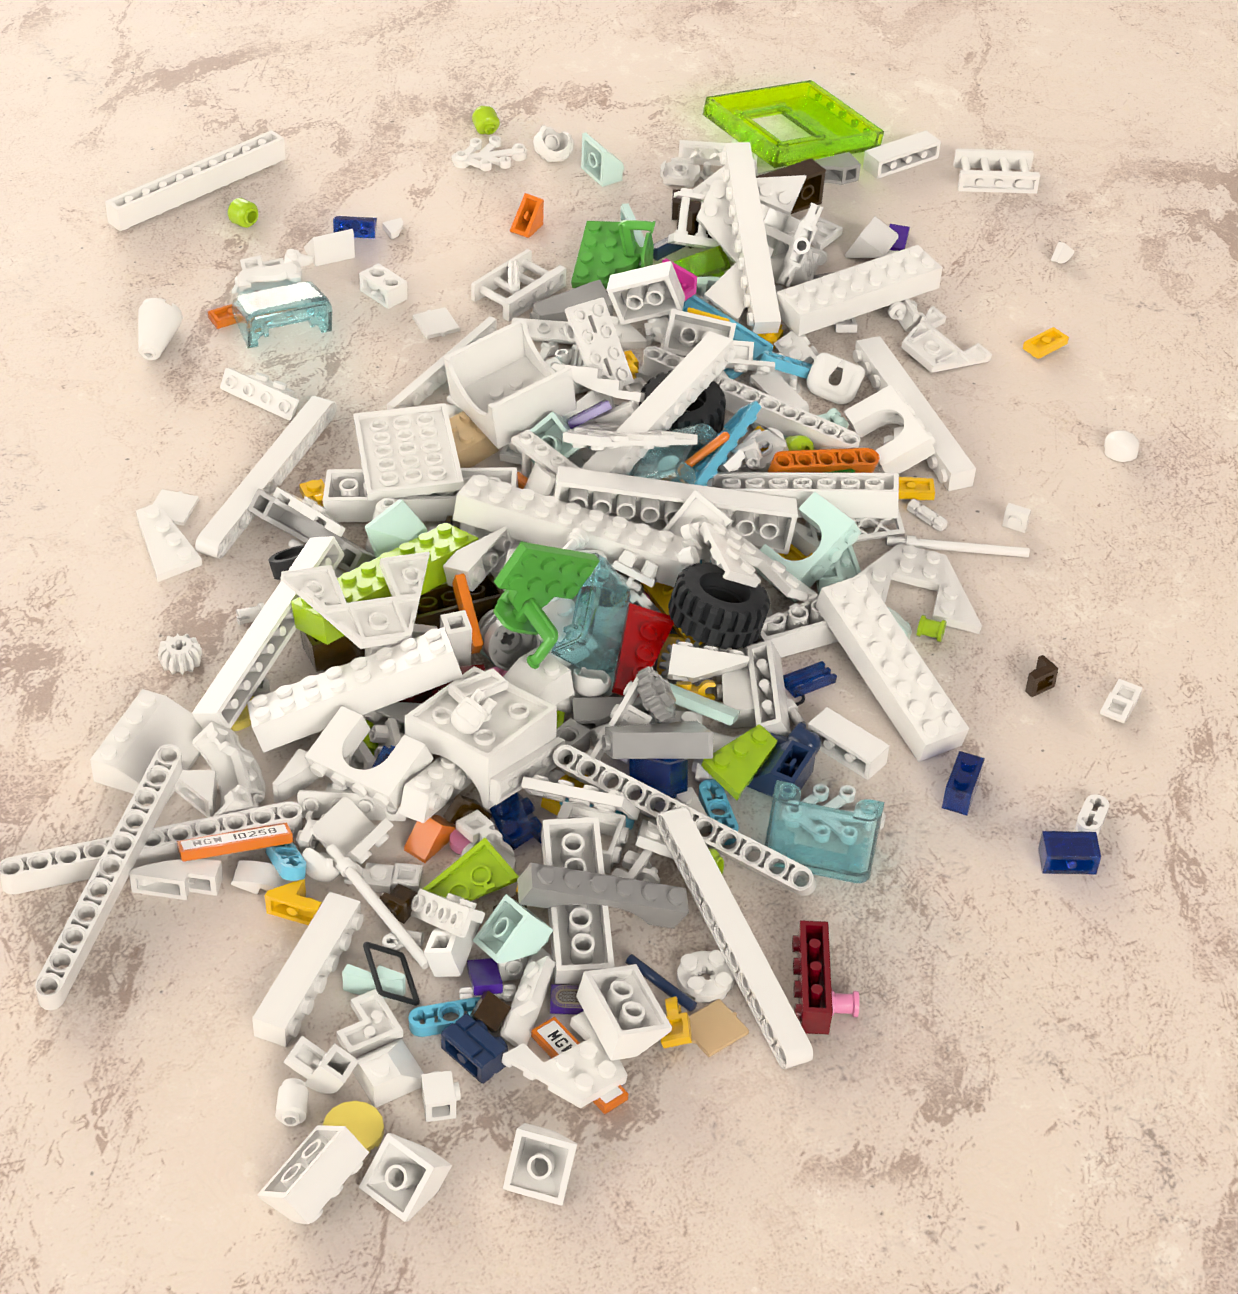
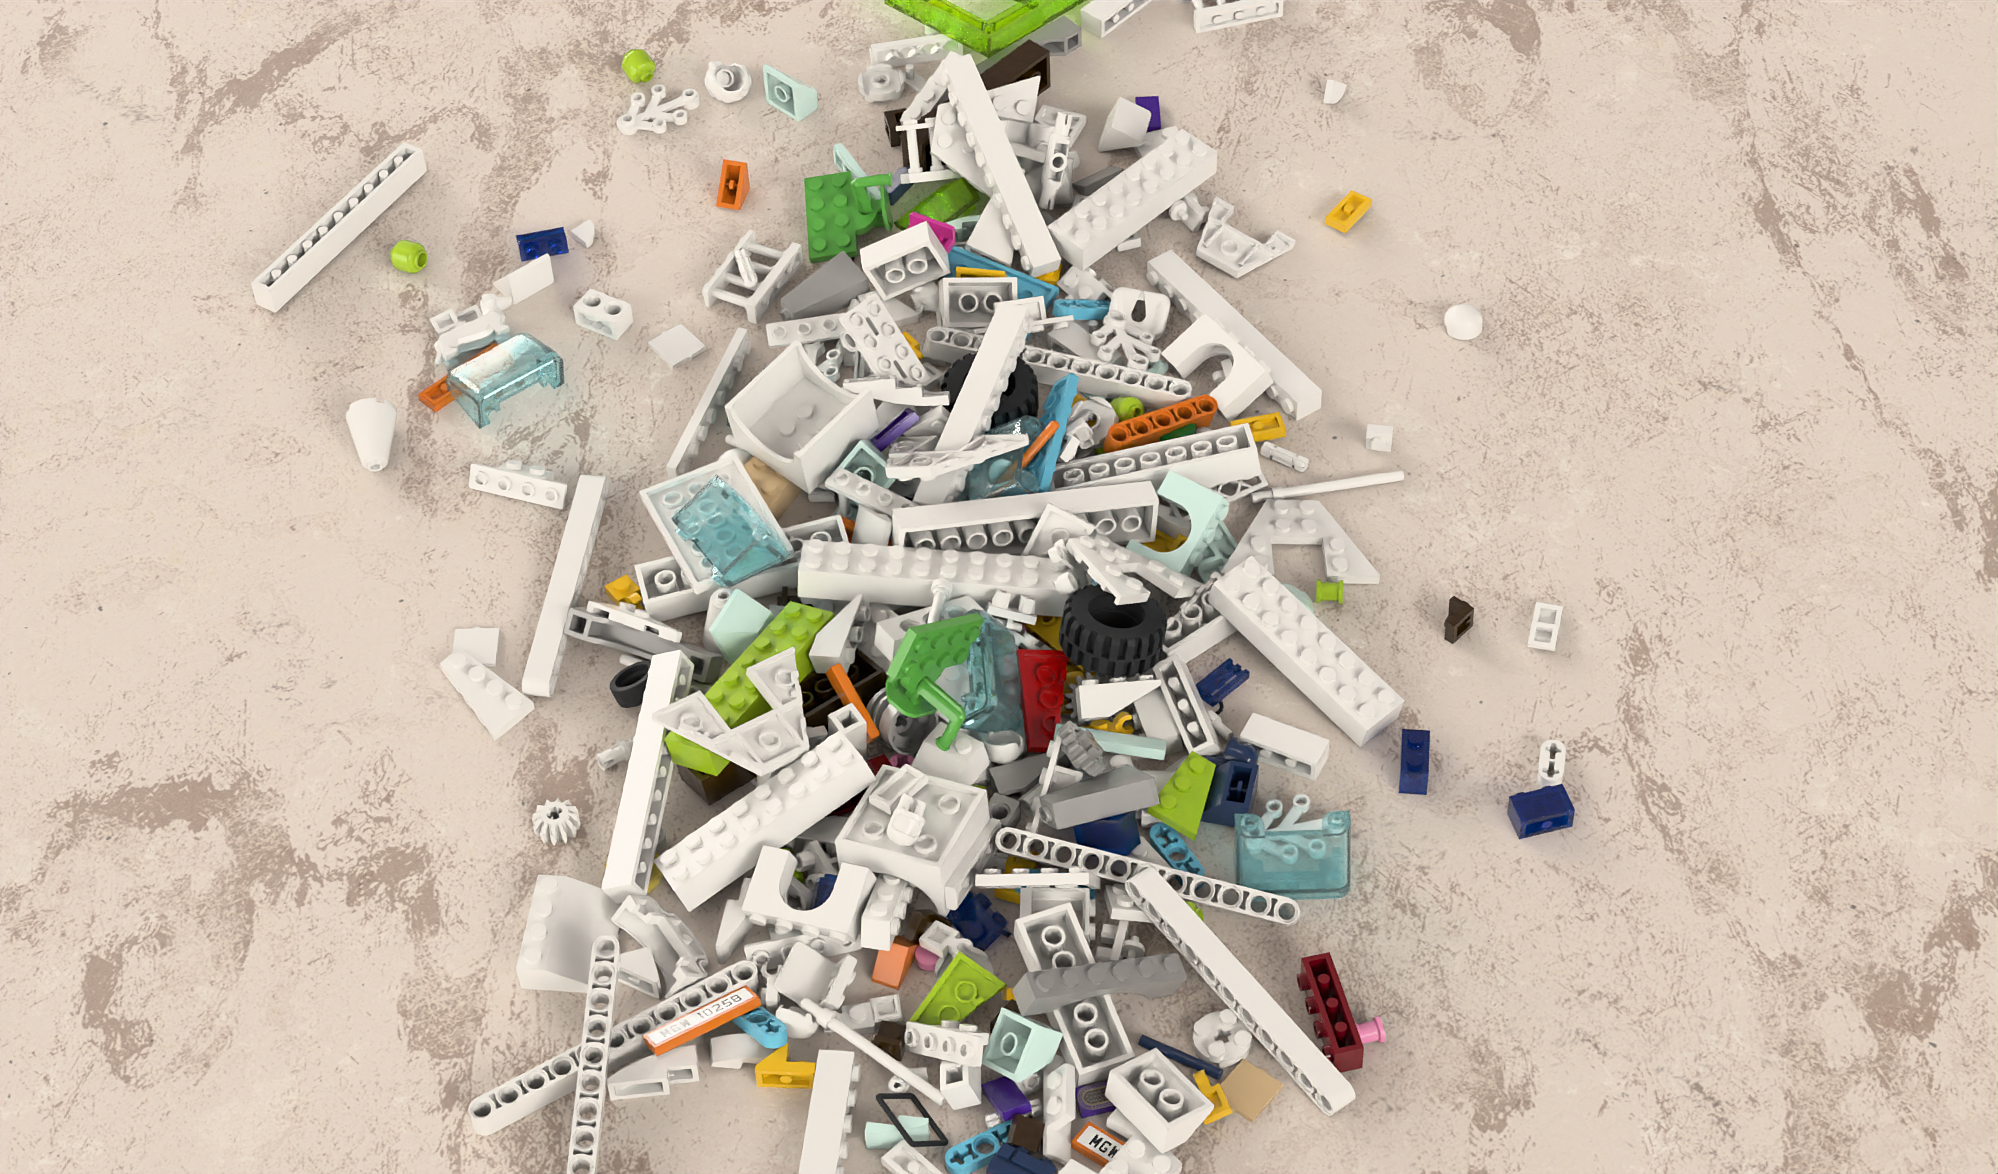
camera: 10 degrees left, 5 degrees up
(411, 455) = (729, 533): none -> clear light blue windscreen
(814, 382) = (1117, 322): none -> white plant

